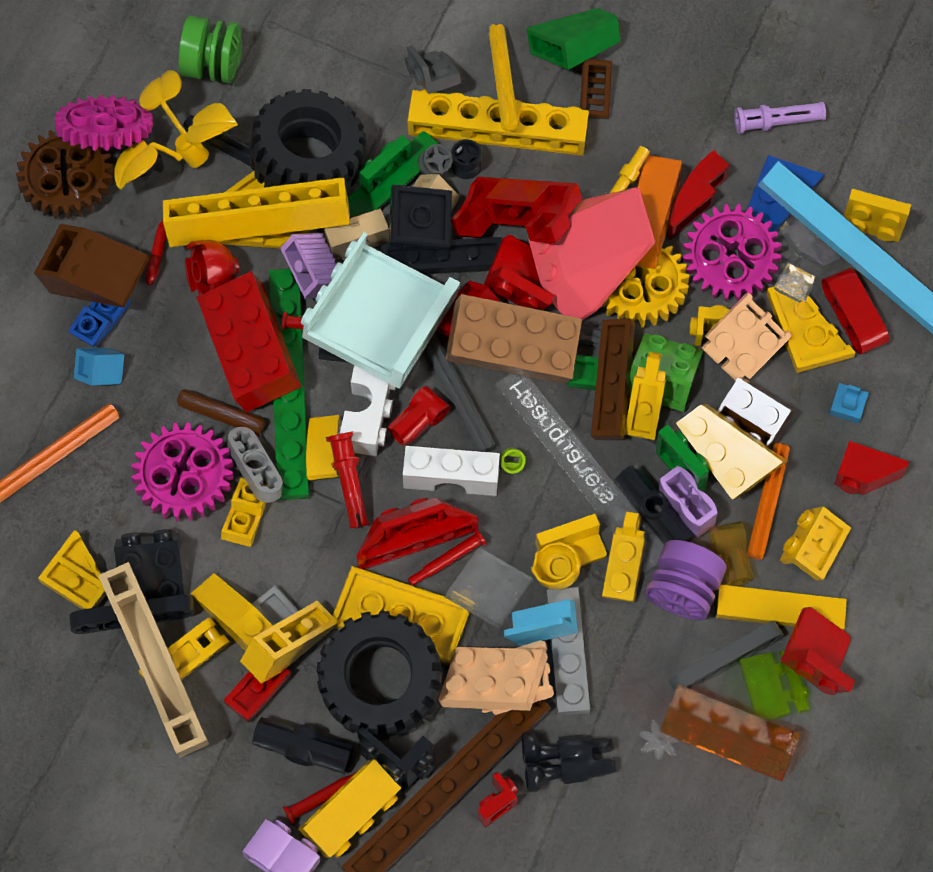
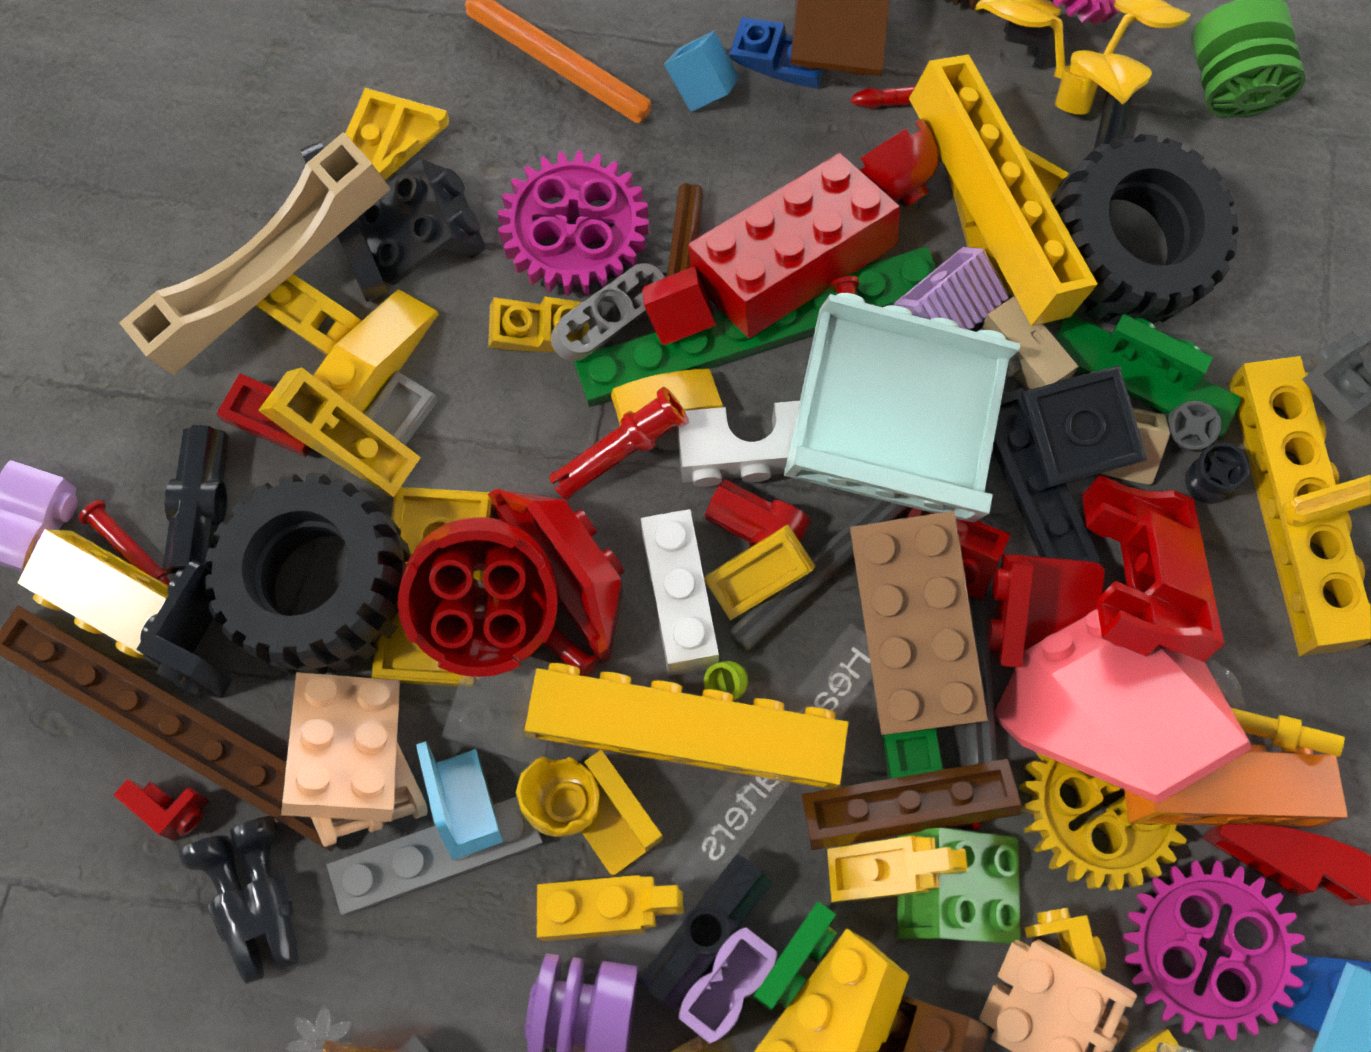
camera: 75 degrees right, 5 degrees up
(266, 419) = (678, 306): none -> red panel
(421, 571) = (449, 608): none -> red cylinder
(453, 420) = (759, 572): none -> yellow tile
(537, 484) = (685, 727): none -> yellow brick

